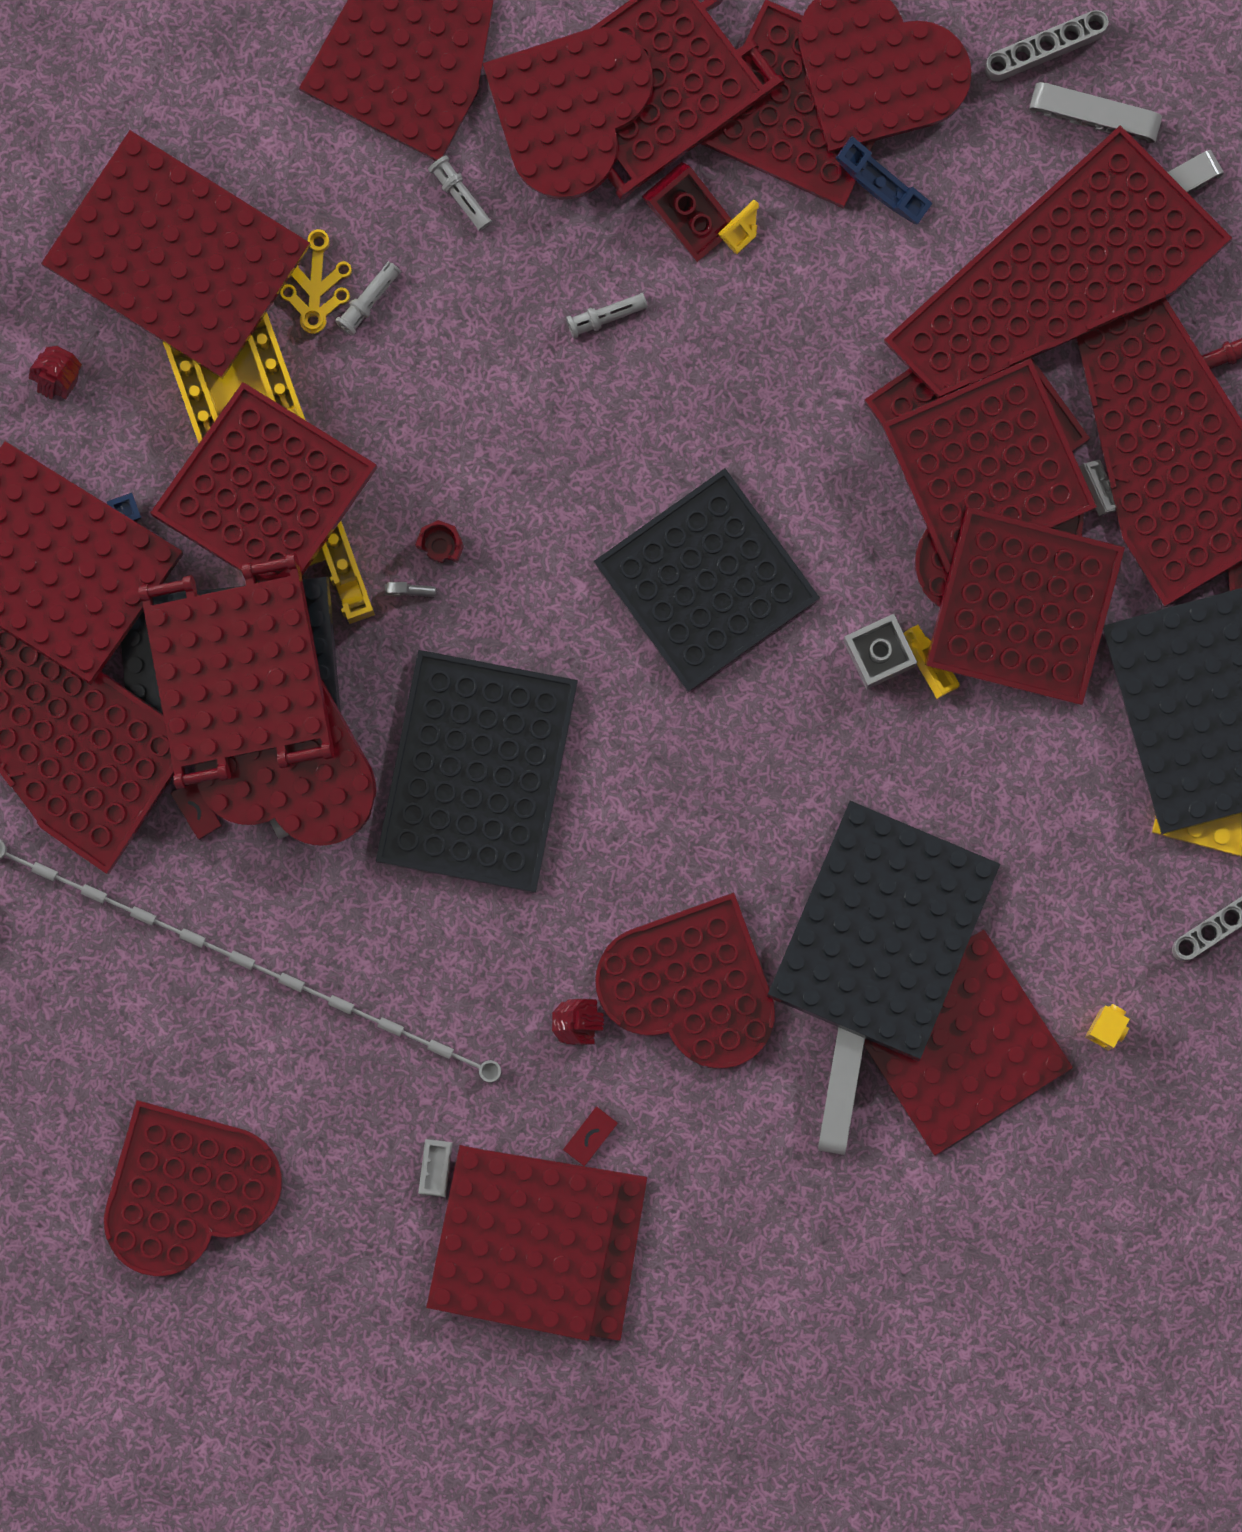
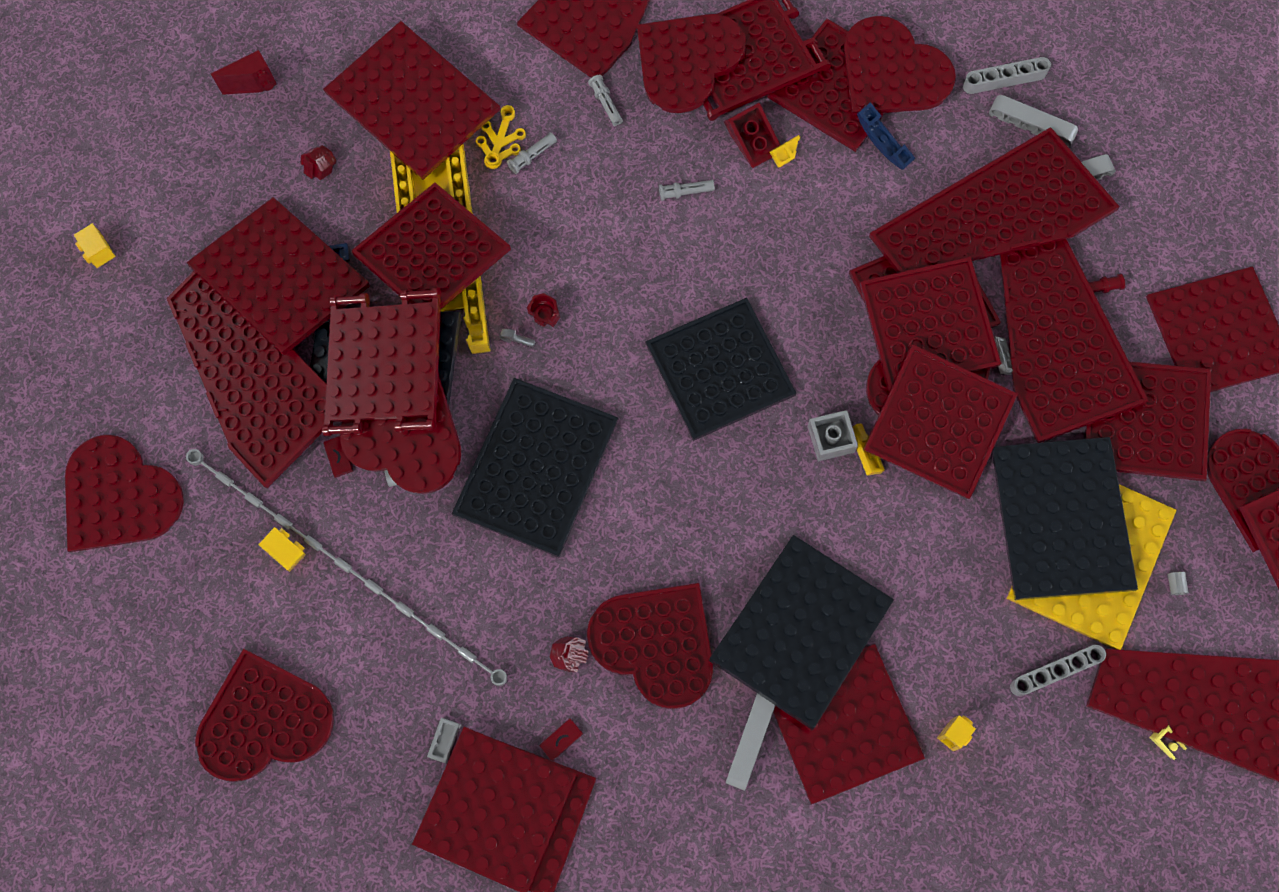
camera: 10 degrees right, 10 degrees down
(155, 955) = (282, 549): none -> yellow brick

